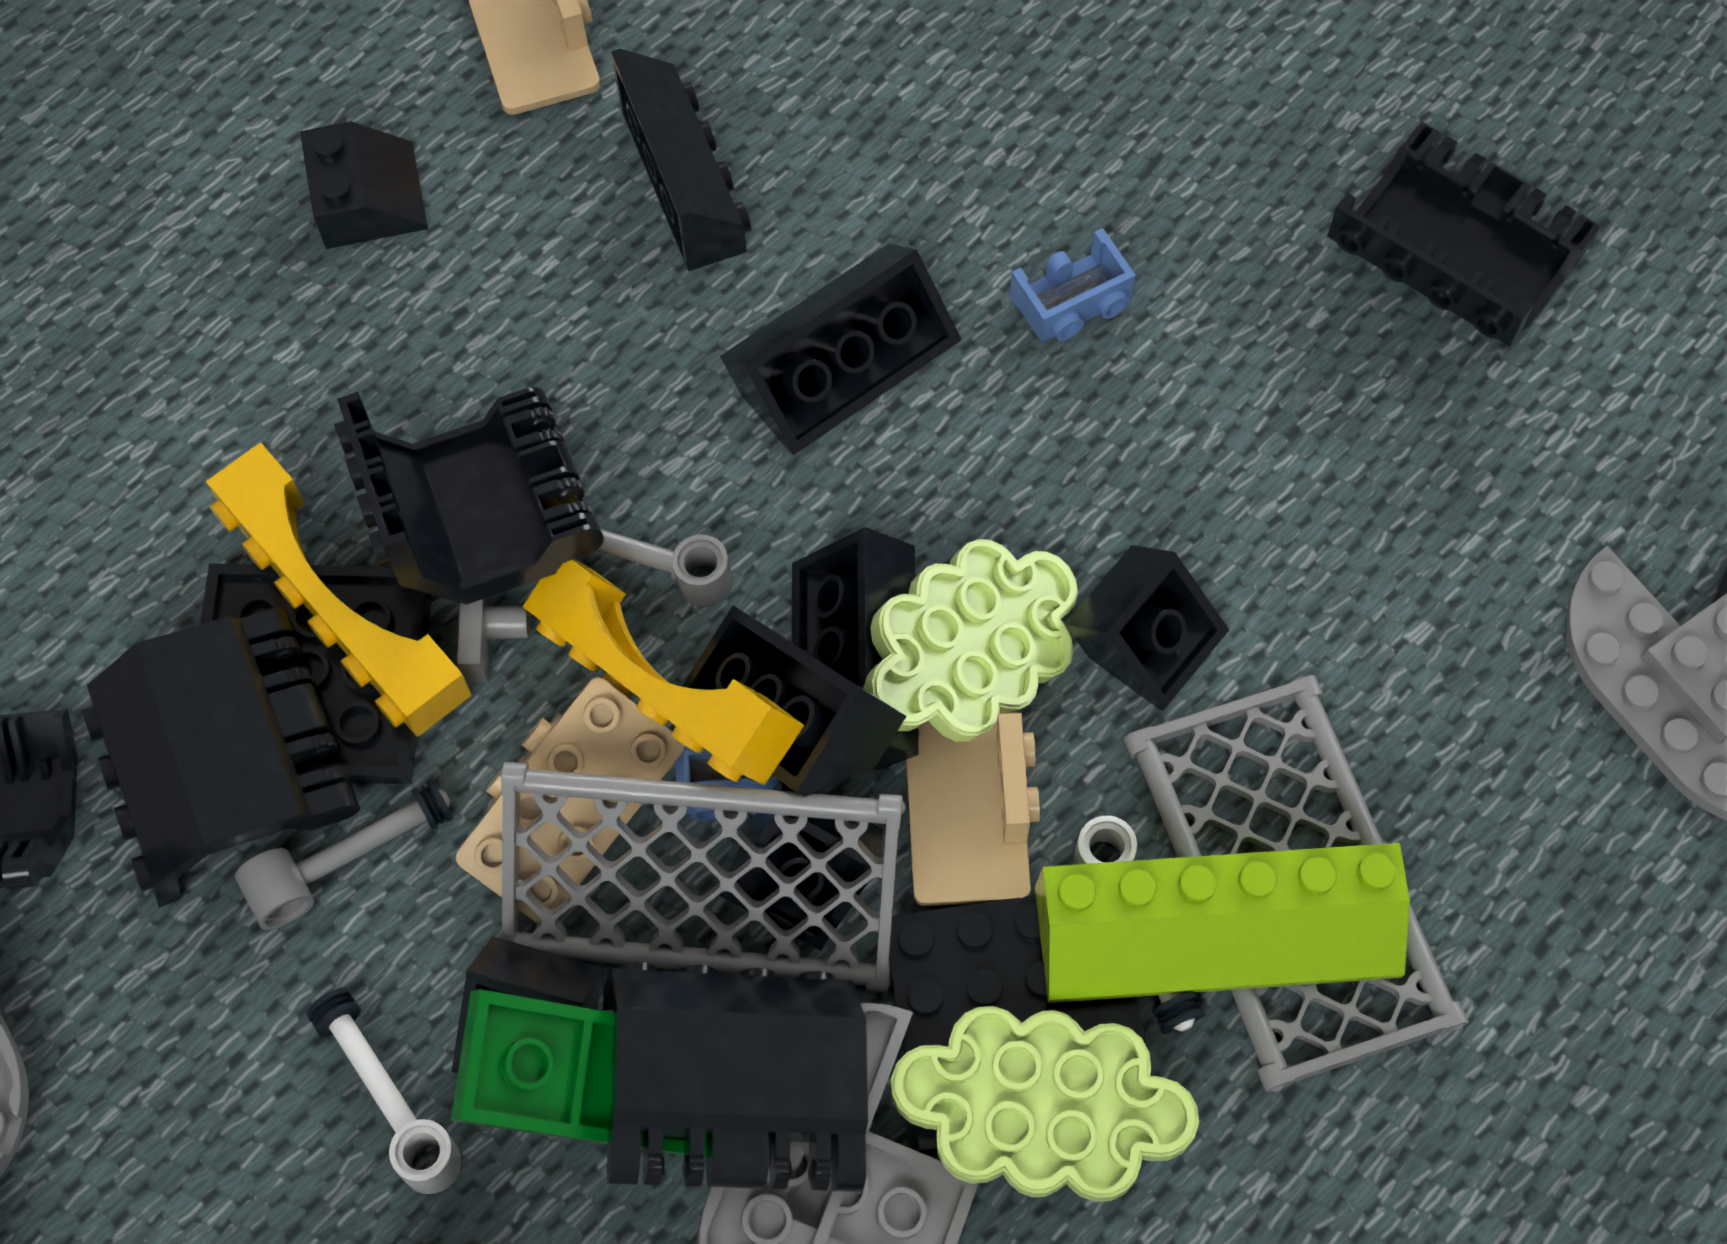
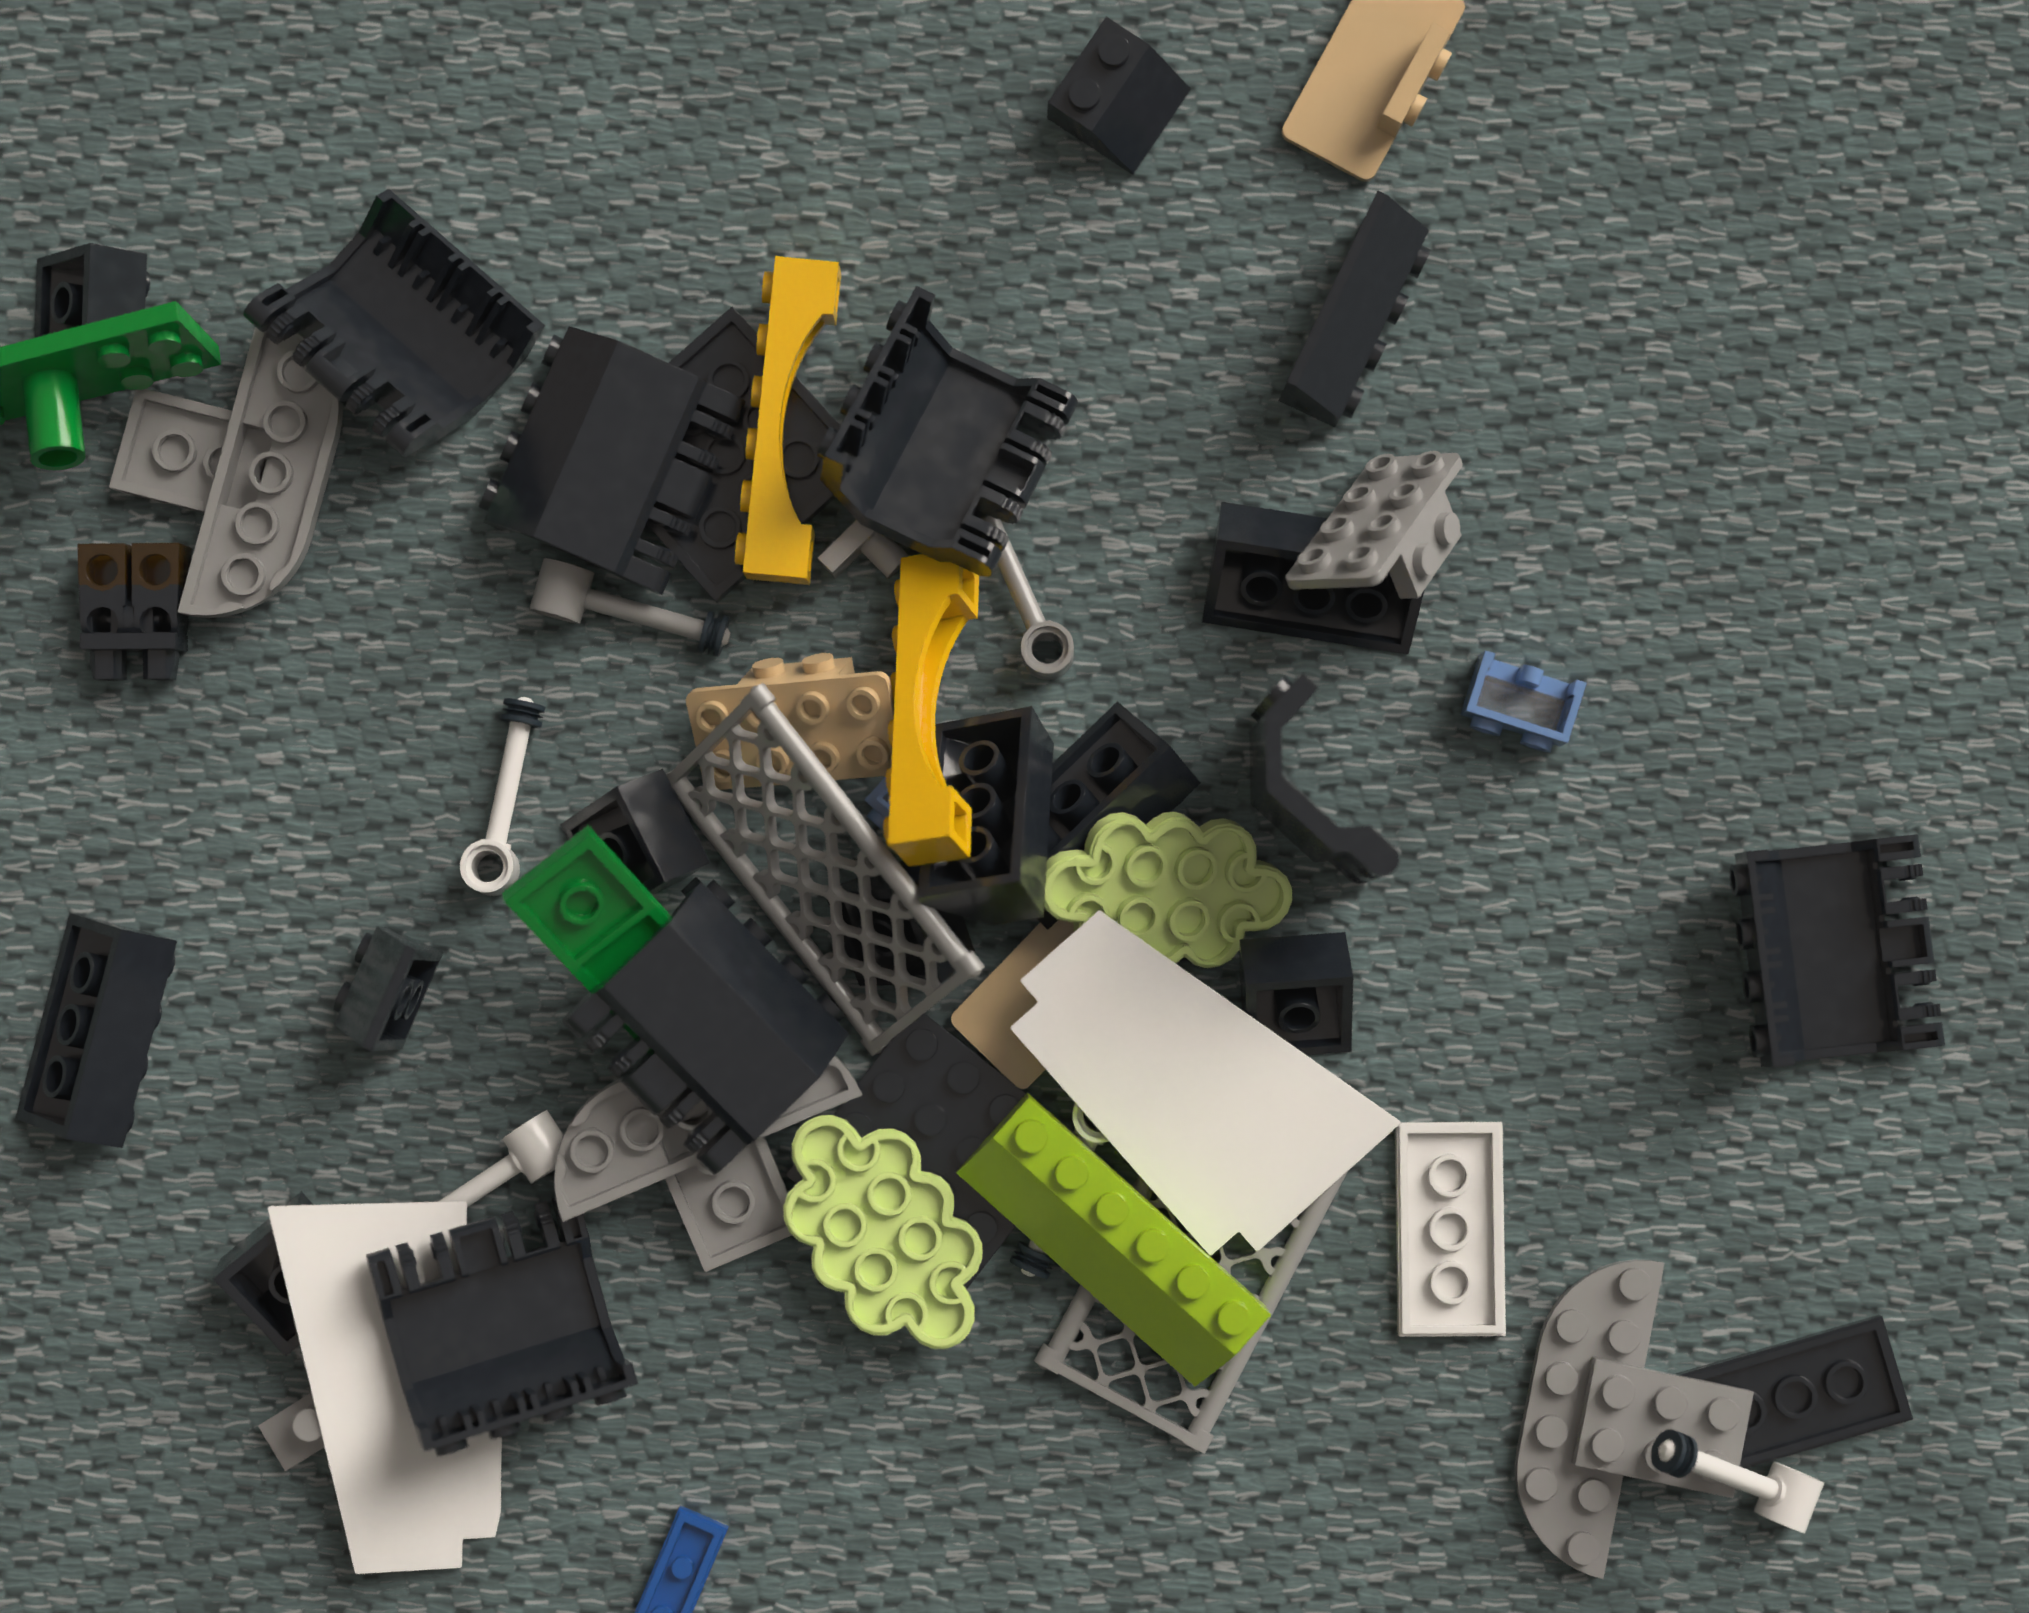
camera: 45 degrees right, 20 degrees up
(851, 243) = (1386, 523): none -> light grey bracket
(1004, 470) = (1353, 850): none -> black hinge
(1147, 752) = (1191, 1087): none -> white sticker
(1441, 678) = (1450, 1229): none -> white tile

